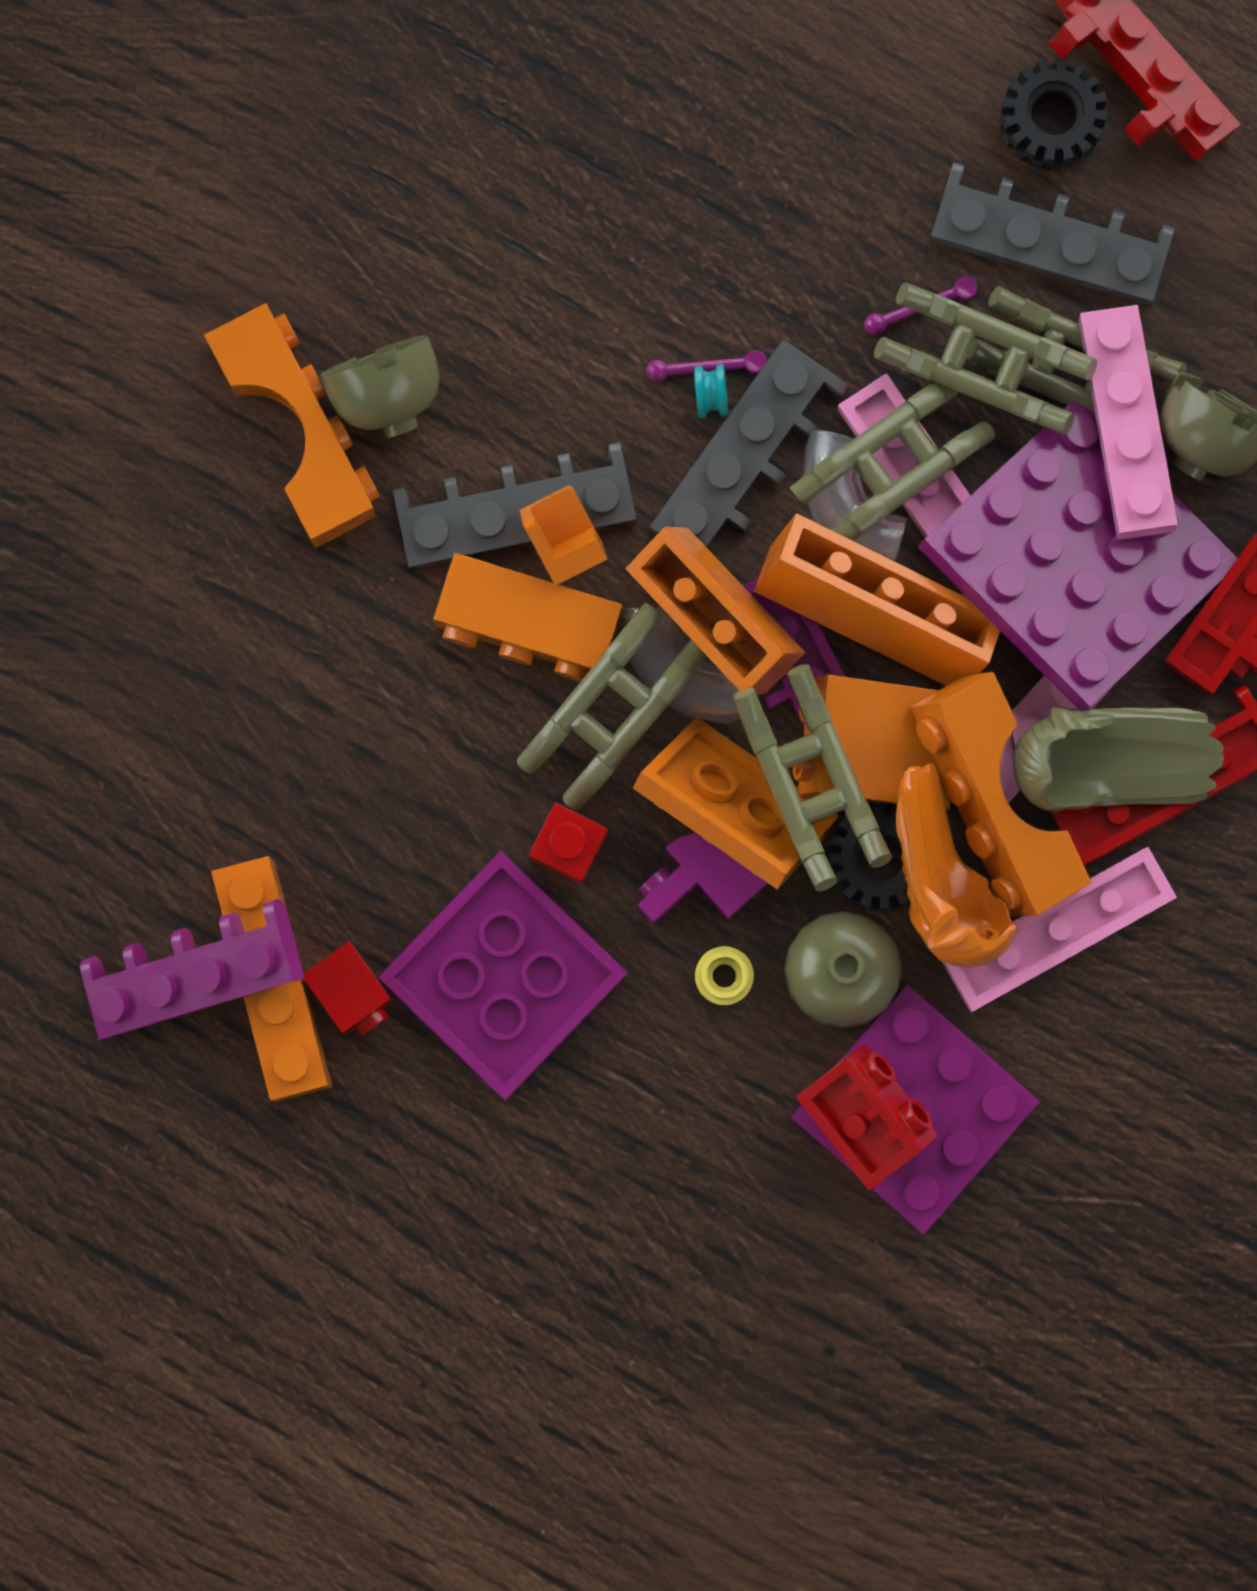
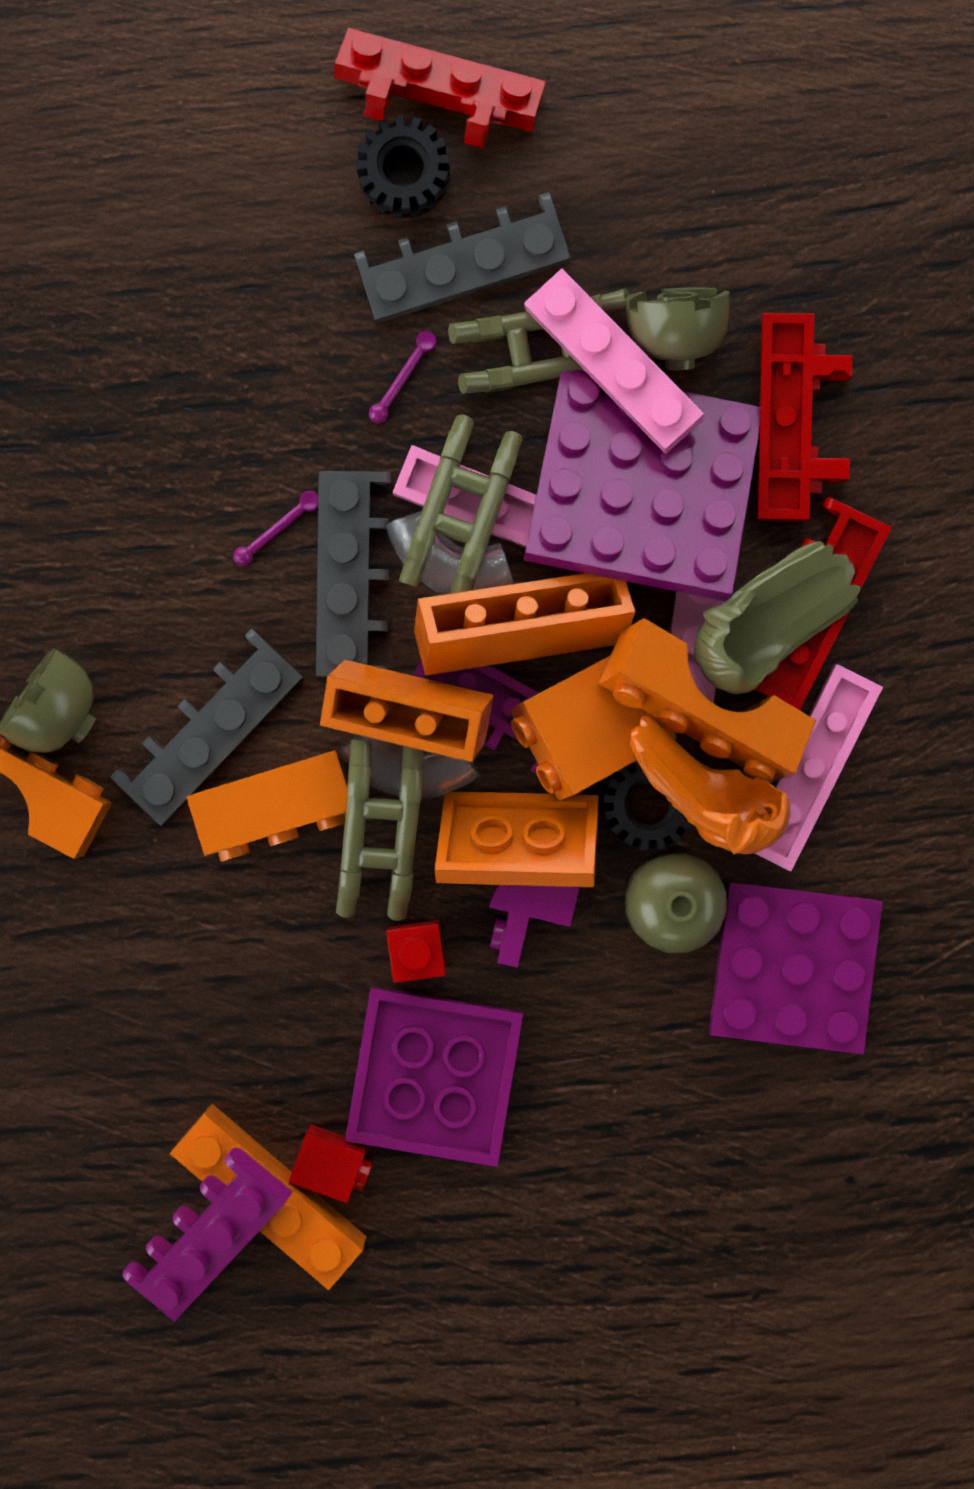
camera: 35 degrees left, 5 degrees up
(563, 534) = (256, 728): orange panel -> none
(711, 391) = (292, 545): teal bush -> none
(724, 956) = (597, 981): light yellow plate -> none
(801, 814) = (596, 781): olive piece -> none
(868, 1115) = (770, 1001): red bracket -> none
(998, 393) = (506, 399): olive piece -> none

